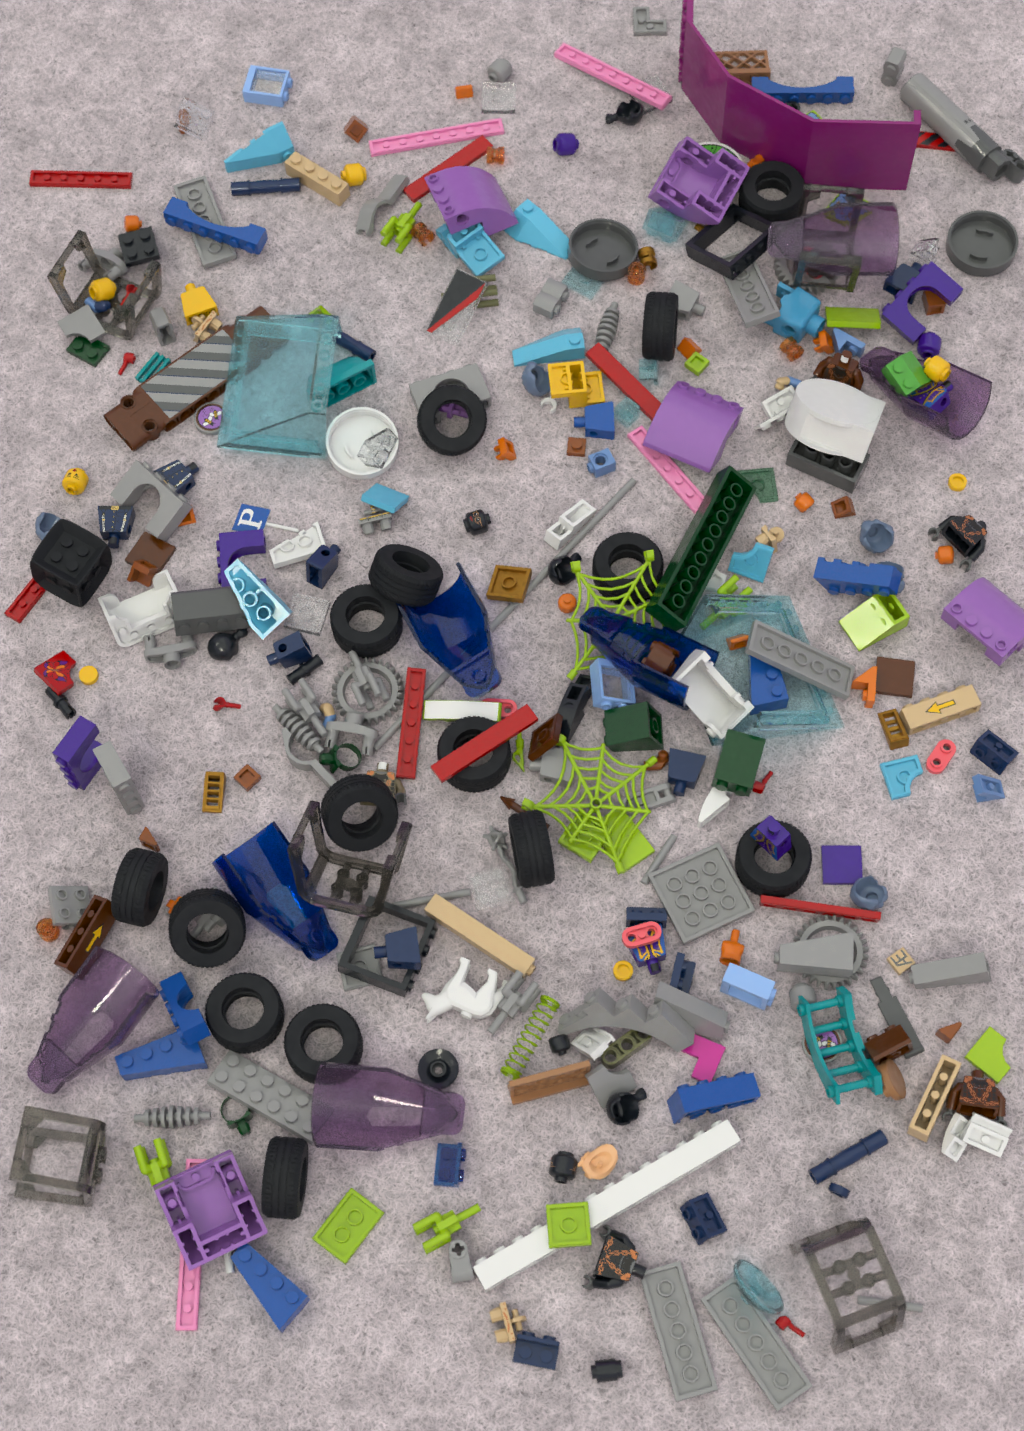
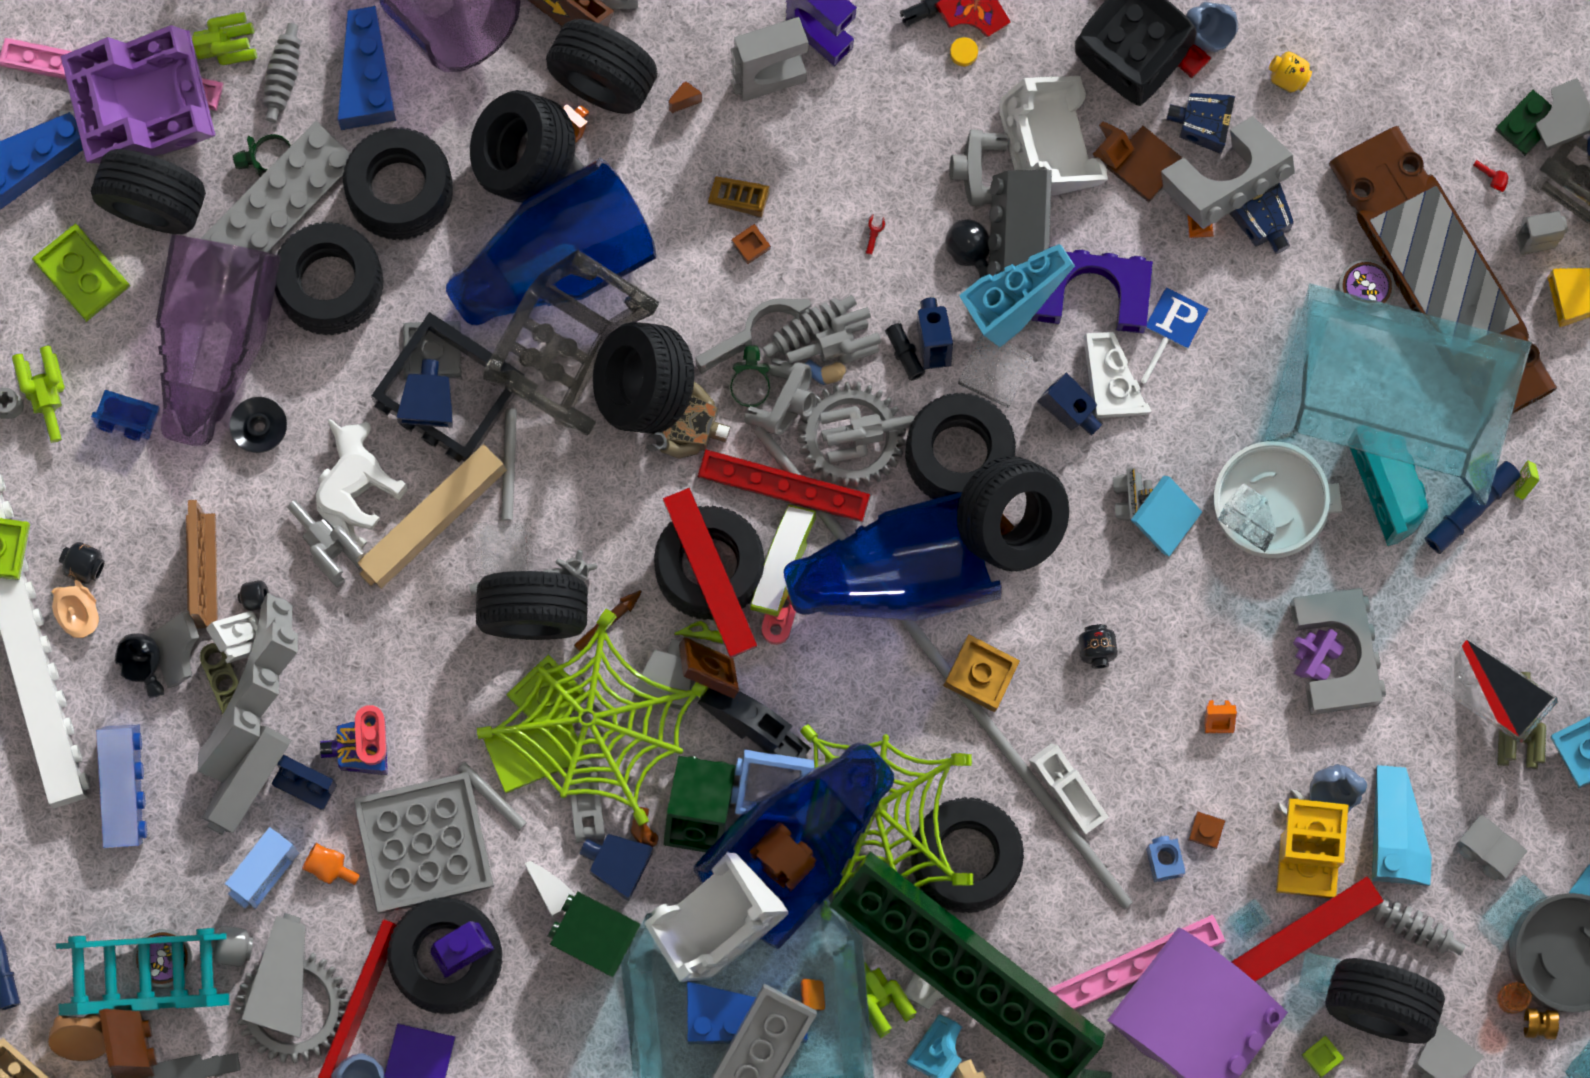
camera: 95 degrees right, 10 degrees up
(161, 358) = (1483, 236): teal tile -> none
(190, 1022) = (448, 99): blue arch -> none
(210, 322) = (1542, 310): tan hips -> none
(451, 395) = (1240, 626): black tyre -> none
(506, 1070) = (232, 512): lime piece -> none
(560, 569) = (990, 760): black hair -> none
(567, 603) = (933, 751): orange piece -> none
(597, 421) = (1244, 871): blue torso -> none
(623, 970) = (338, 706): yellow tile -> none
(641, 915) = (405, 754): dark blue bracket -> none
(688, 347) = (1357, 1053): orange slope -> none
(708, 1057) = (183, 796): dark pink tile -> none
(758, 787) = (569, 970): red hand -> none

